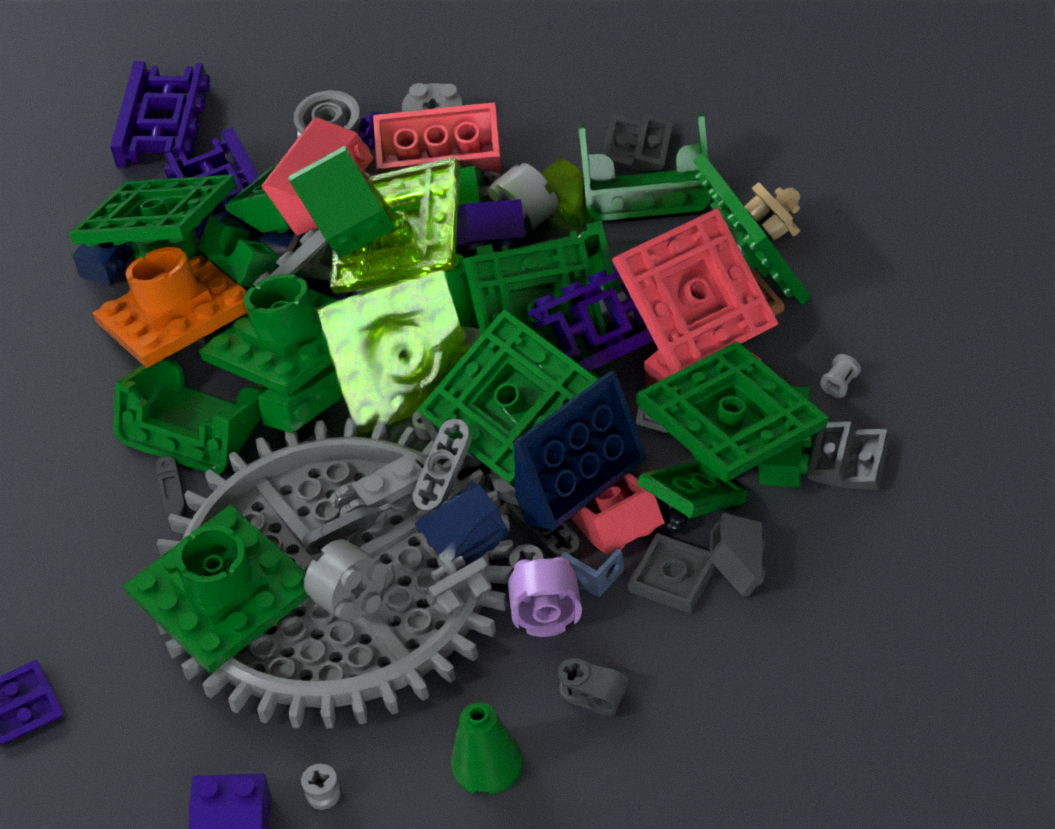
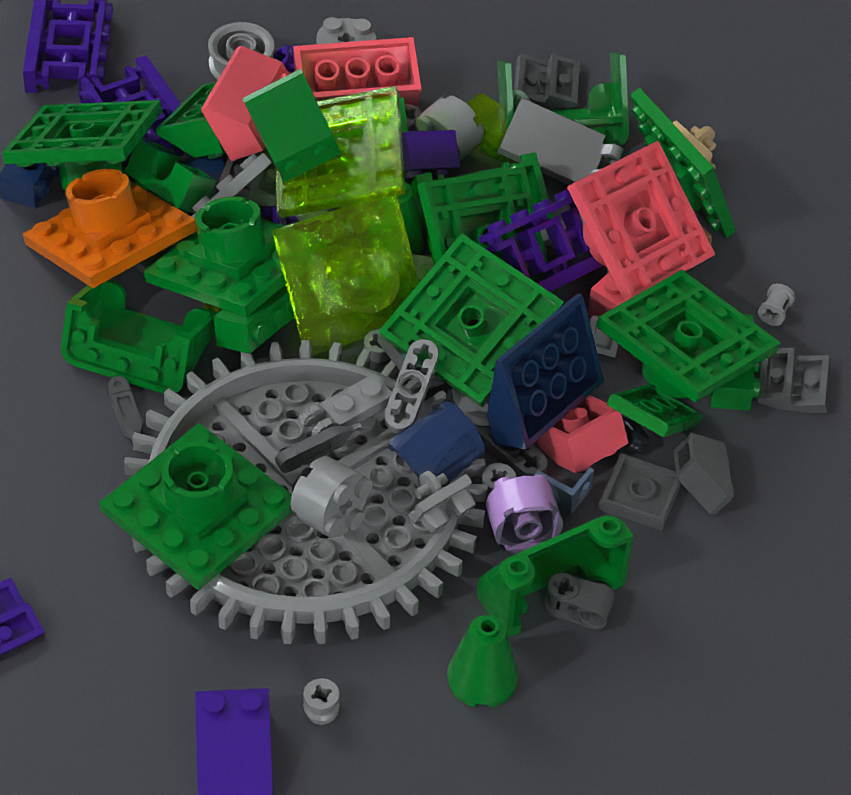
camera: 15 degrees left, 0 degrees up
(602, 632) = (592, 550): none -> green windscreen
(628, 207) = (562, 146): none -> light grey tile

